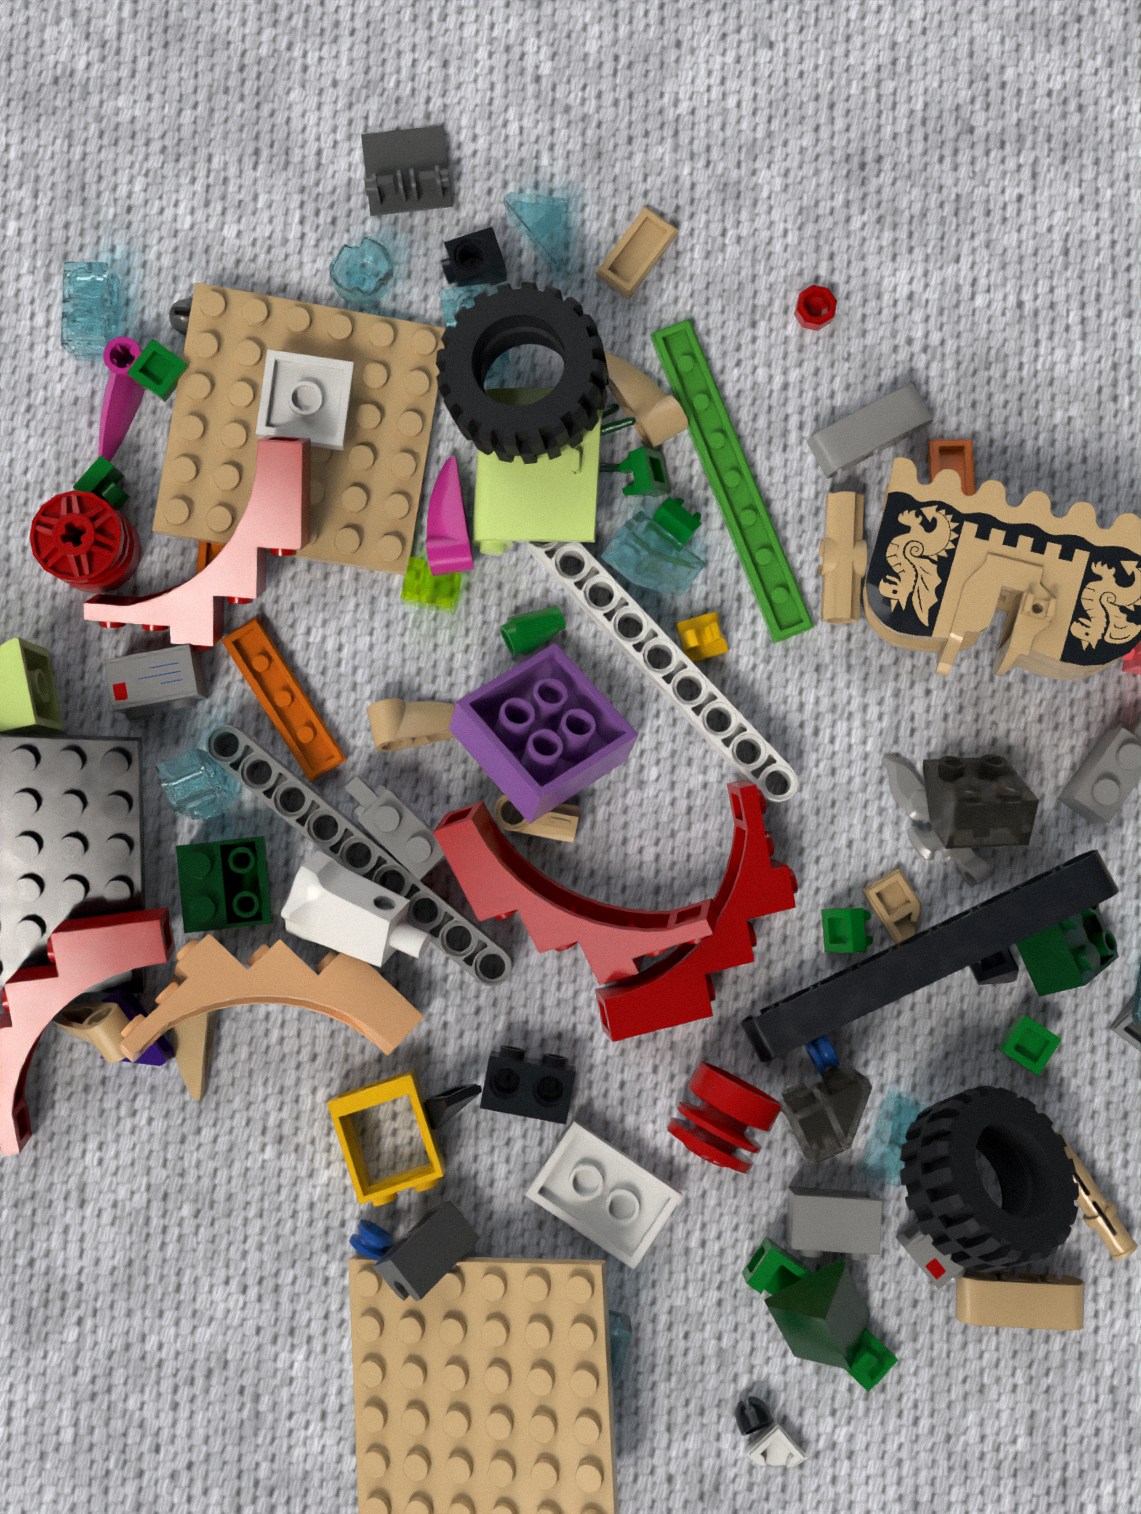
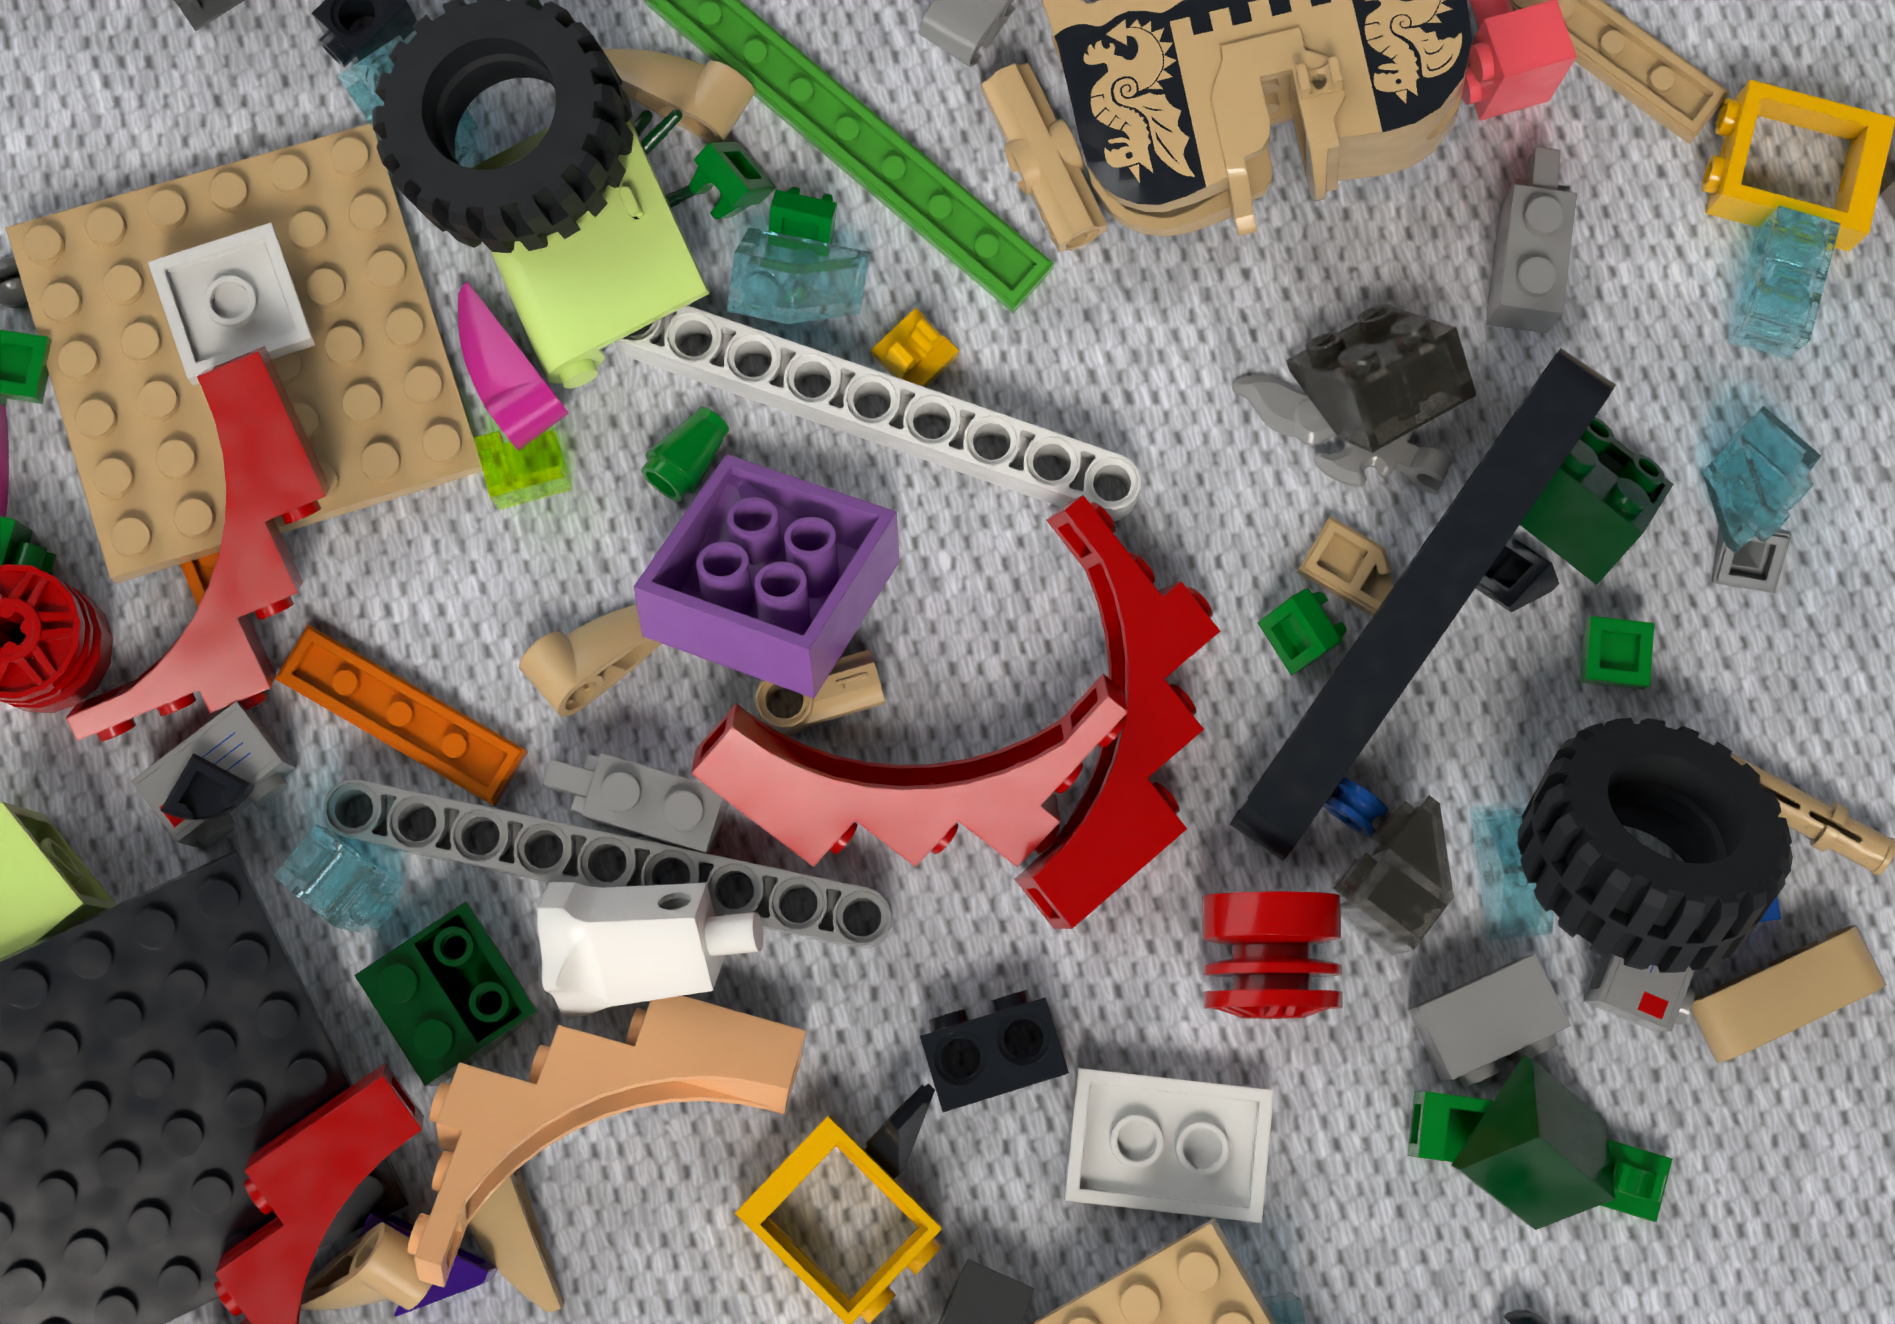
camera: 25 degrees left, 5 degrees down
(143, 689) = (205, 791): none -> black tile
(368, 260) = (222, 88): clear light blue hair -> none

